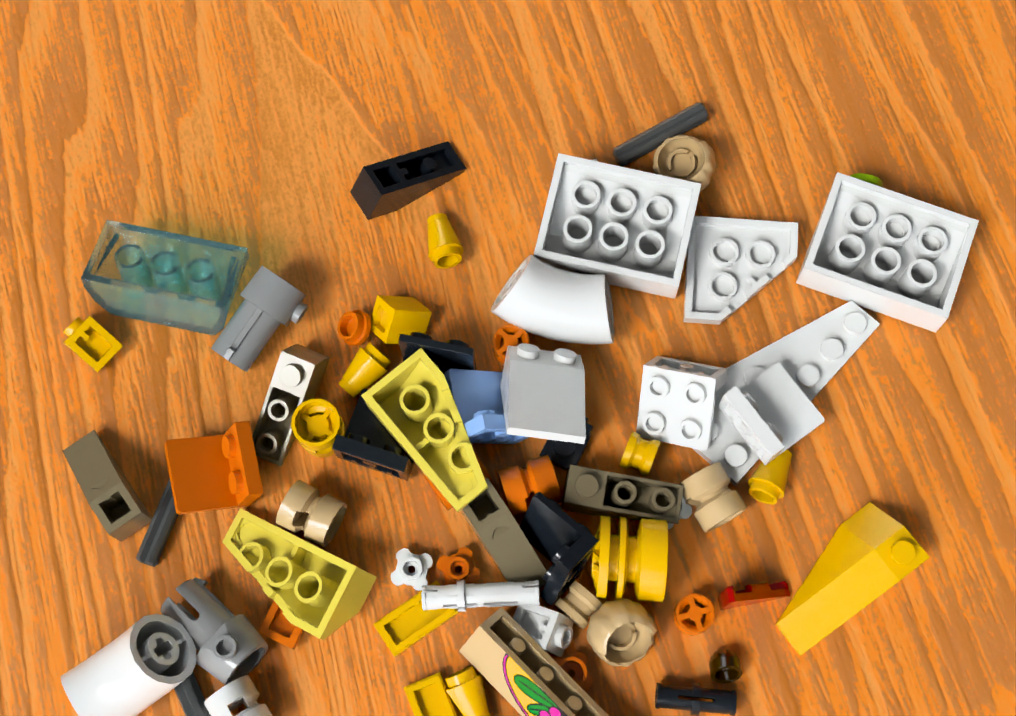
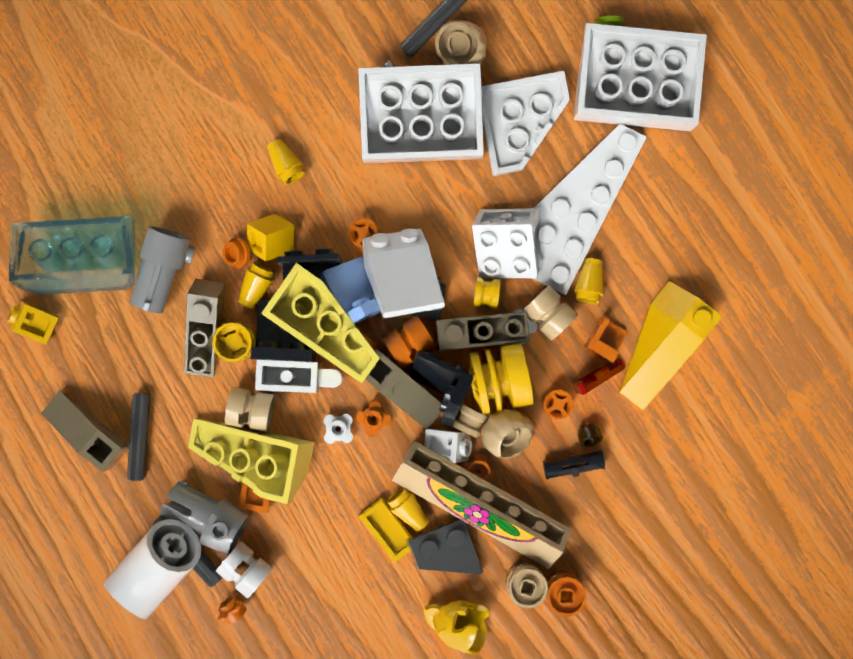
camera: 25 degrees left, 15 degrees up
(214, 470) = (164, 398): orange bracket -> none
(378, 487) = (294, 376): none -> white brick
(403, 179) = (239, 117): black slope -> none
(410, 623) = (352, 463): yellow tile -> none
(473, 595) = (396, 435): white pin -> none
(557, 303) = (391, 192): white brick -> none
(771, 412) = (579, 235): white bracket -> none
(774, 552) = (606, 339): none -> orange panel

